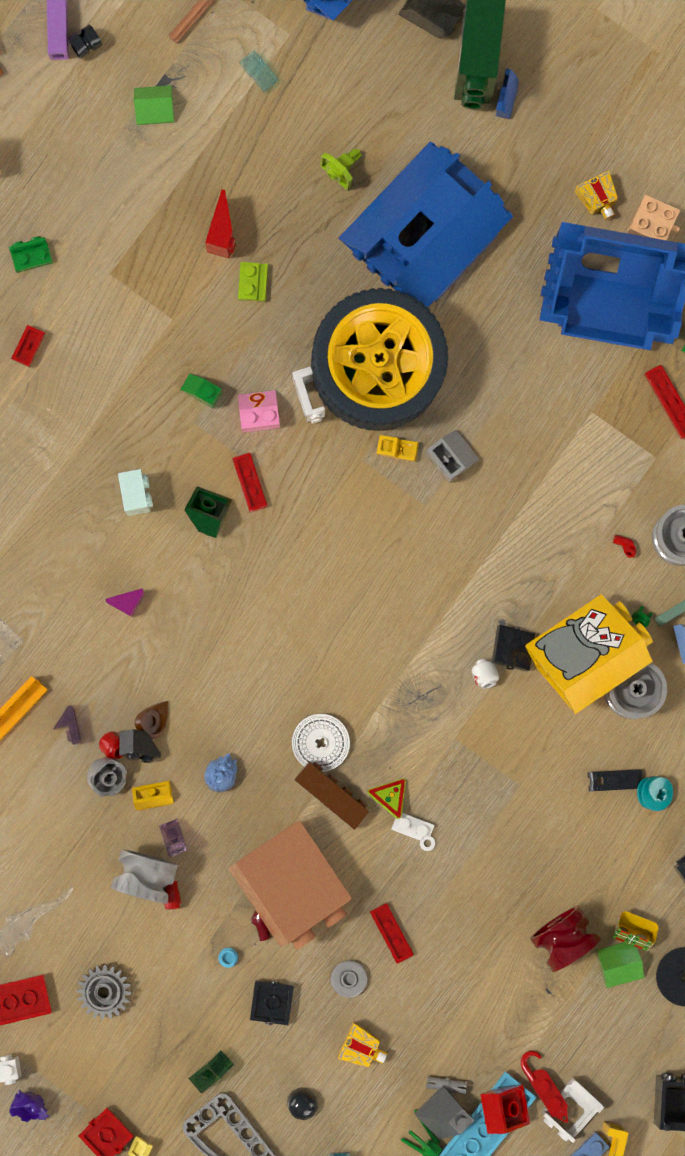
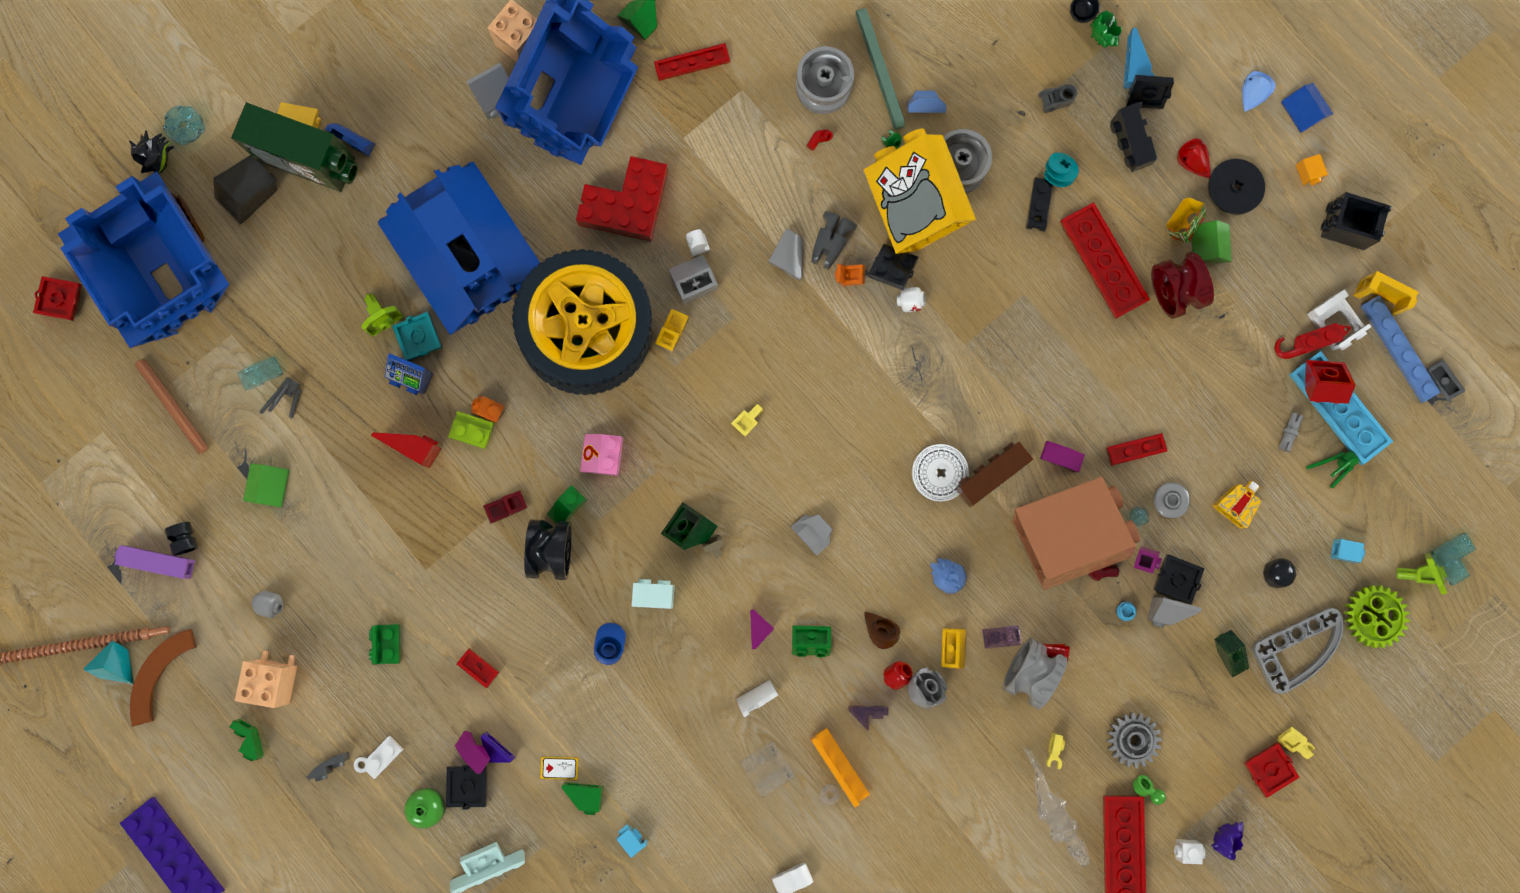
camera: 75 degrees left, 0 degrees up
(42, 136) = (267, 603): none -> light grey head
(60, 615) = (756, 697): none -> white slope
(60, 1011) = (1144, 787): none -> bright green plate
(79, 463) = (609, 643): none -> blue cap
(81, 916) = (1055, 746): none -> light yellow plate
(127, 655) = (811, 641): none -> green bracket
(138, 745) = (904, 650): black slope -> none
(154, 382) = (548, 549): none -> black piece
(186, 332) = (505, 507): none -> dark red slope
(196, 539) = (714, 545): none -> dark tan tile
(231, 632) = (813, 532): none -> light grey slope
(236, 999) = (1168, 612): none -> light grey slope
(249, 482) = (669, 480): red tile -> none
(251, 100) = (288, 388): none -> dark grey plant
(276, 291) = (487, 408): none -> orange bracket
(282, 965) = (1147, 560): none -> magenta brick
(290, 208) = (407, 374): none -> slope
(300, 378) = (582, 407): white window -> none
(324, 541) = (746, 421): none -> light yellow plate
(324, 949) = (1139, 516): none -> clear light blue plate
(330, 207) = (417, 336): none -> teal plate
(366, 859) = (1062, 456): none -> magenta slope
(390, 796) = (1008, 418): piece -> none
(416, 829) = (1042, 403): white hinge -> none
(444, 1115) = (1320, 439): dark grey slope -> none
(488, 451) = (697, 242): none -> white leg
(495, 607) = (850, 275): none -> orange bracket
(500, 543) = (788, 254): none -> light grey slope
(505, 381) = (627, 212): none -> red piece
(514, 40) = (300, 113): none -> yellow hinge
(522, 581) = (830, 243): none -> dark grey piece
(574, 858) = (1104, 260): none -> red plate
(587, 212) = (488, 88): none -> light grey slope
(598, 195) = (466, 70): yellow torso -> none

